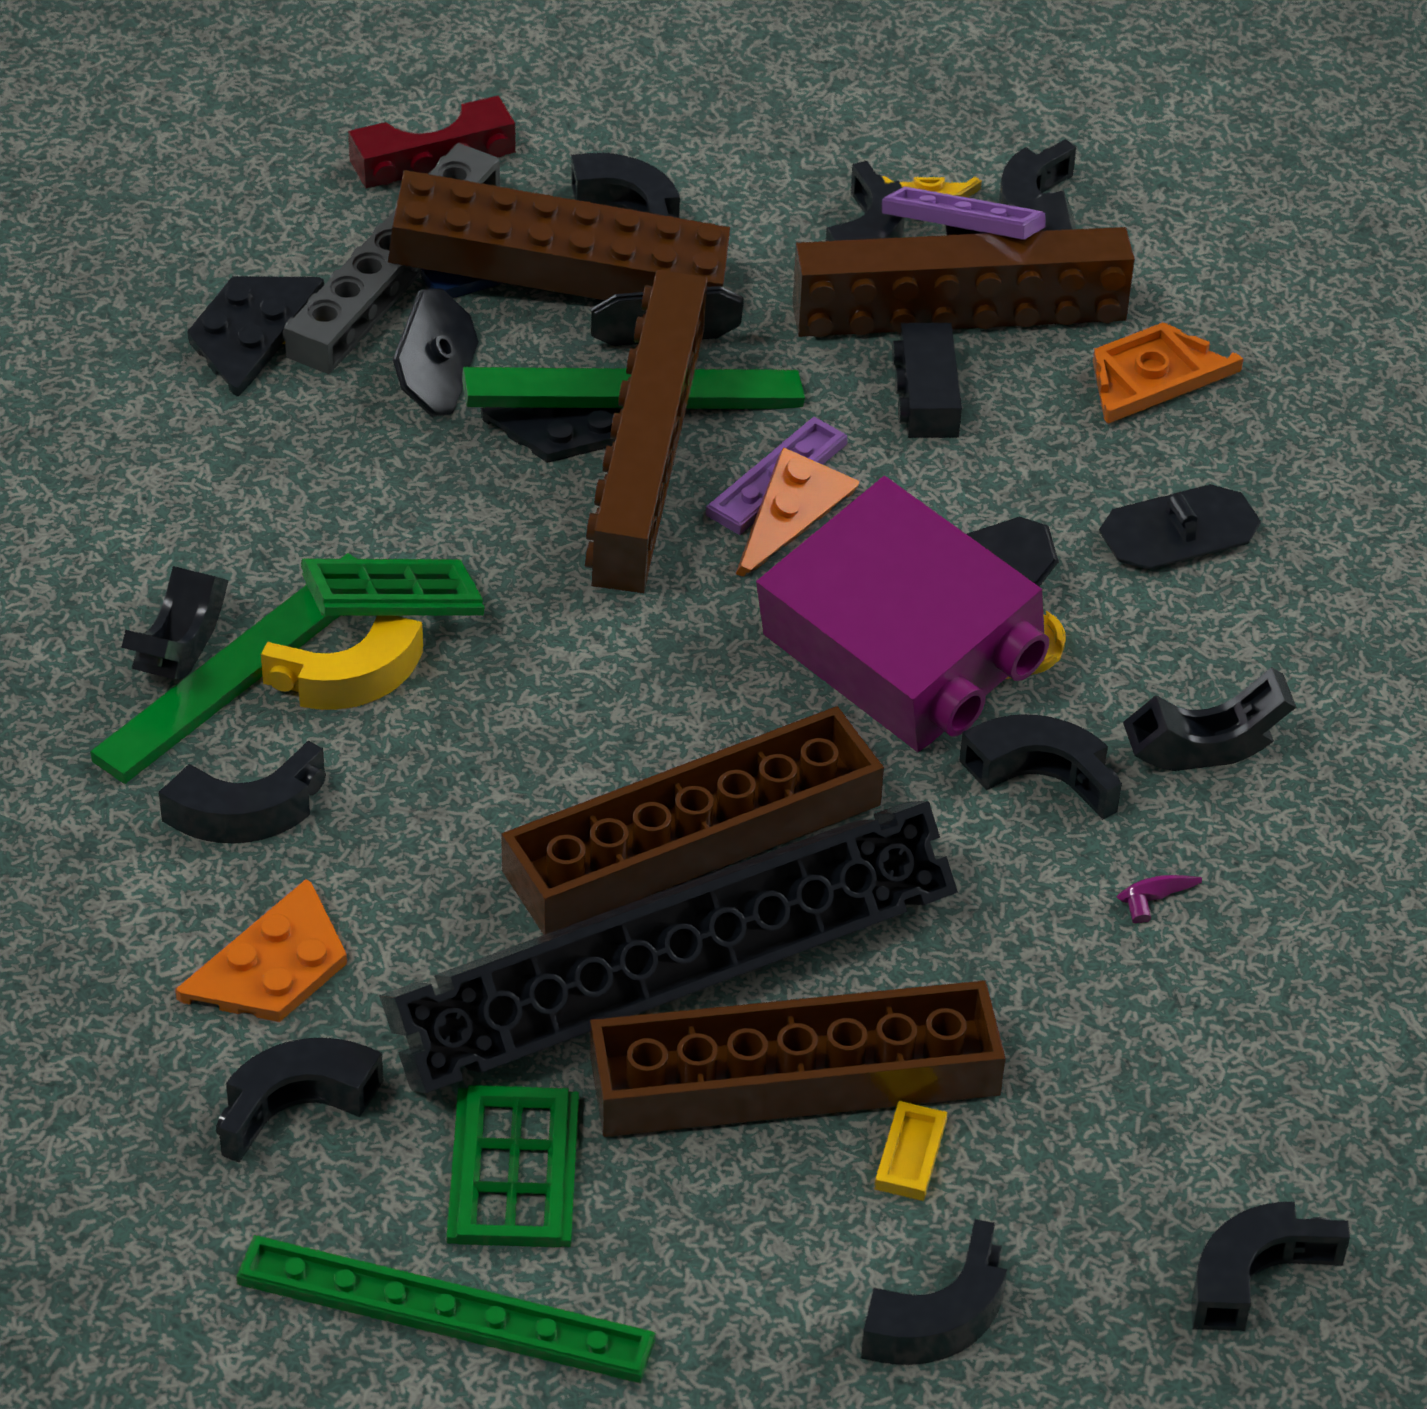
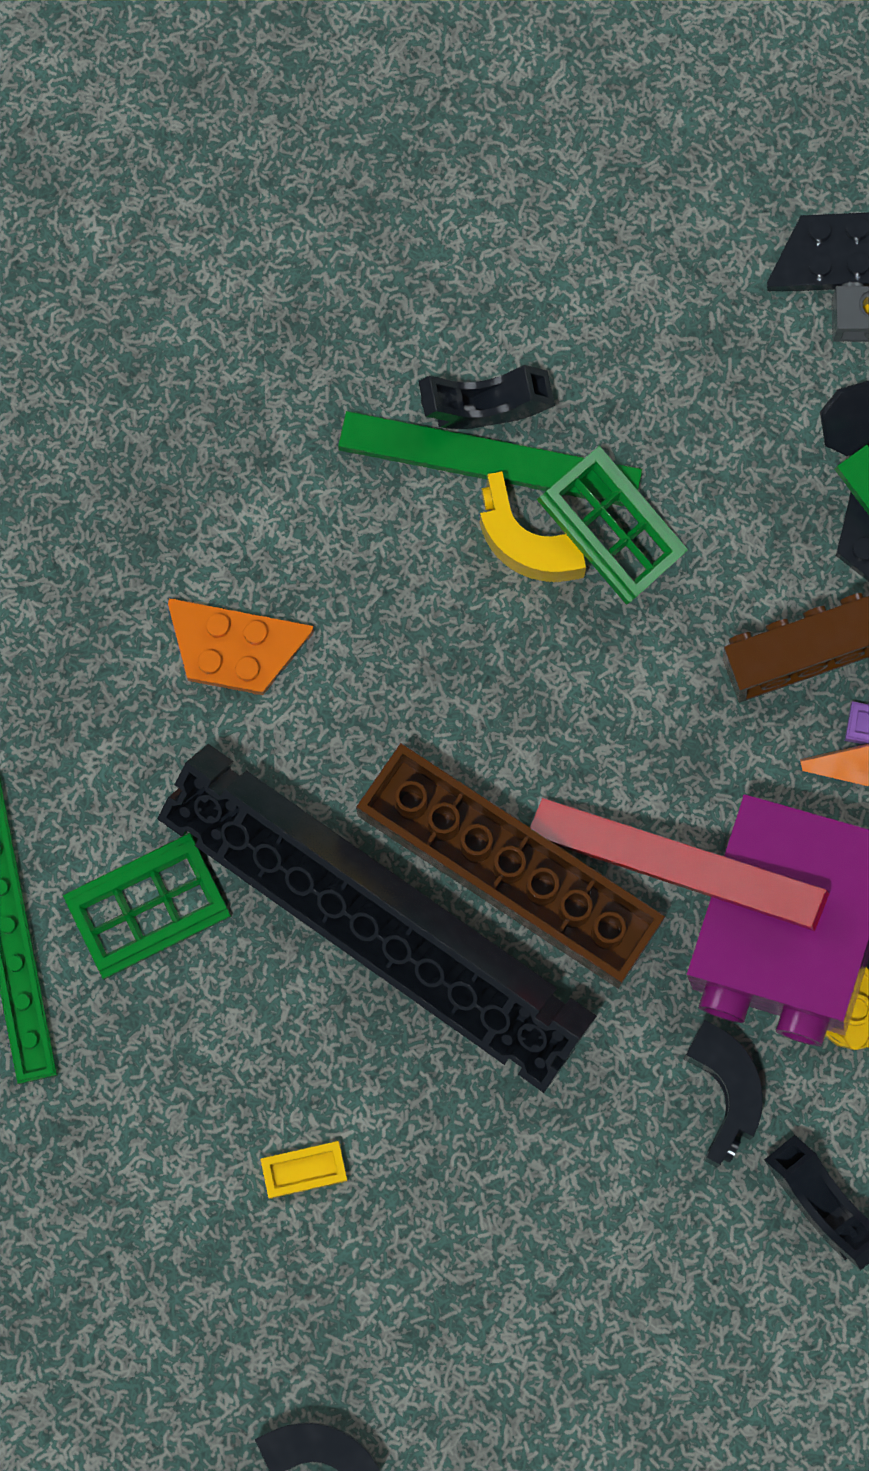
camera: 65 degrees right, 30 degrees up
(243, 811) = (349, 553): black arch -> none
(294, 1074) = (112, 705): black arch -> none
(795, 1058) = (327, 1053): reddish brown brick -> none
(801, 652) = (681, 864): none -> tile
(941, 1323) = (149, 1258): black arch -> none
(1153, 888) = (635, 1222): magenta bar -> none

